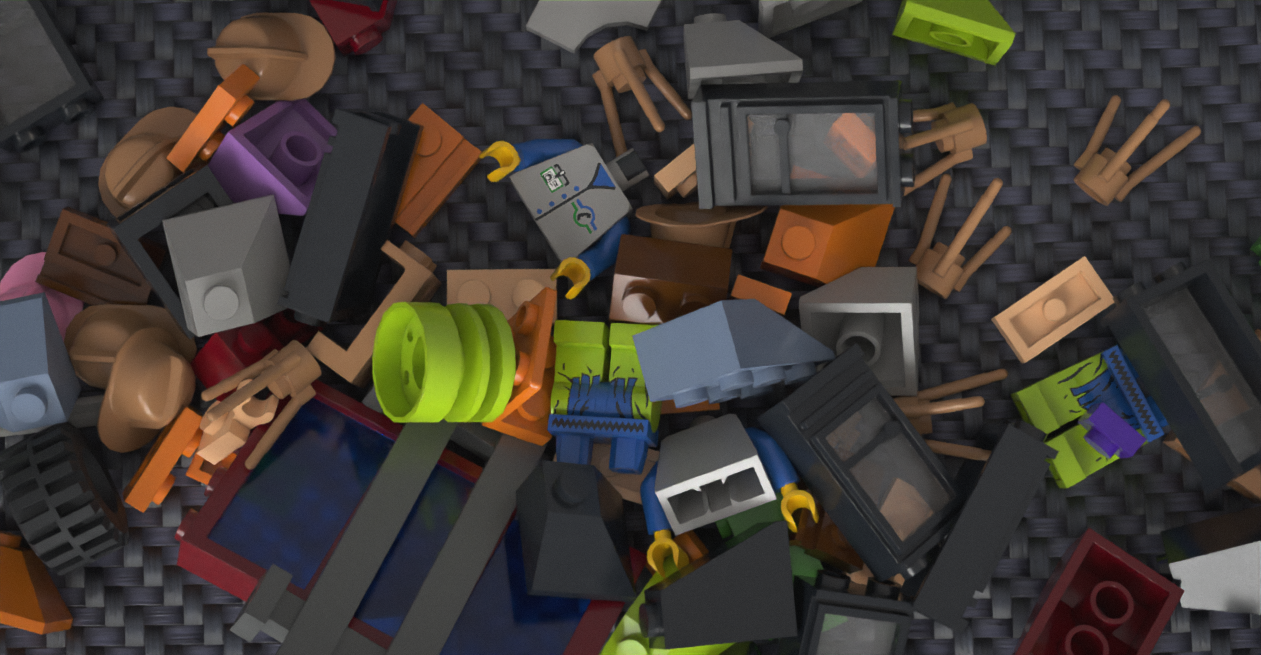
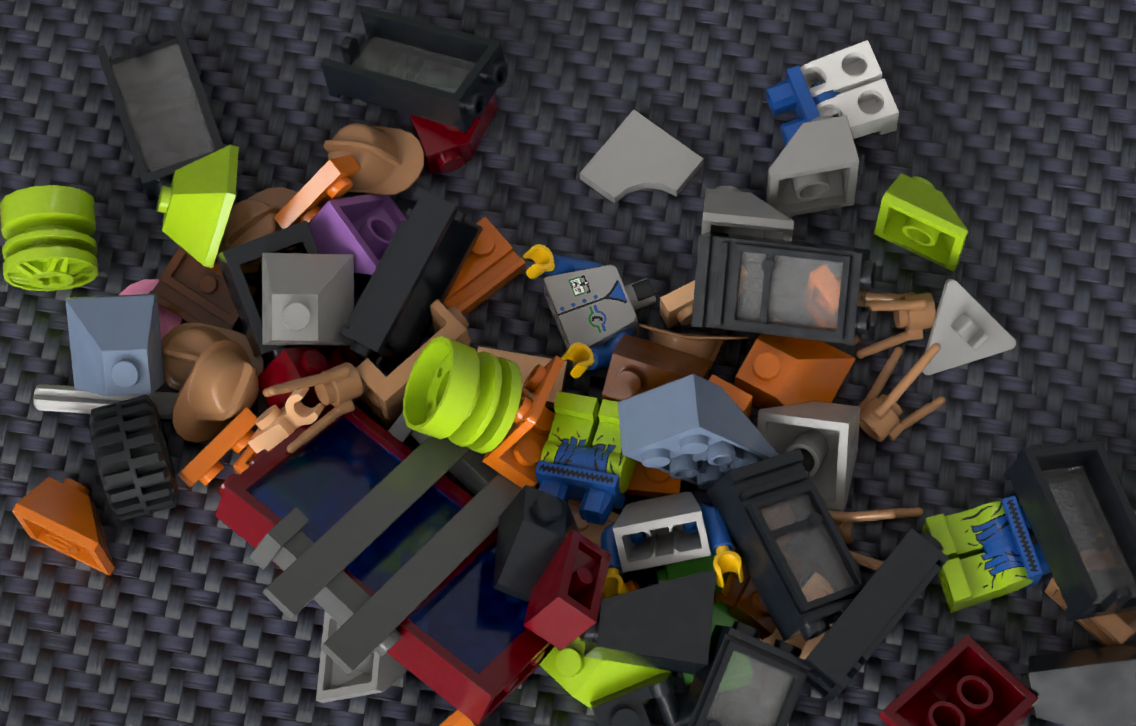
camera: 10 degrees right, 15 degrees down
(73, 160) = (200, 203): none -> lime slope
(619, 583) = (568, 591): none -> dark red slope
(624, 68) = (654, 220): medium nougat plant -> none
(1020, 143) = (964, 331): none -> light grey piece
(1053, 310) = (967, 465): light nougat plate -> none
(1105, 174) = (1029, 367): medium nougat plant -> none
(1109, 432) = (996, 556): dark purple plate -> none

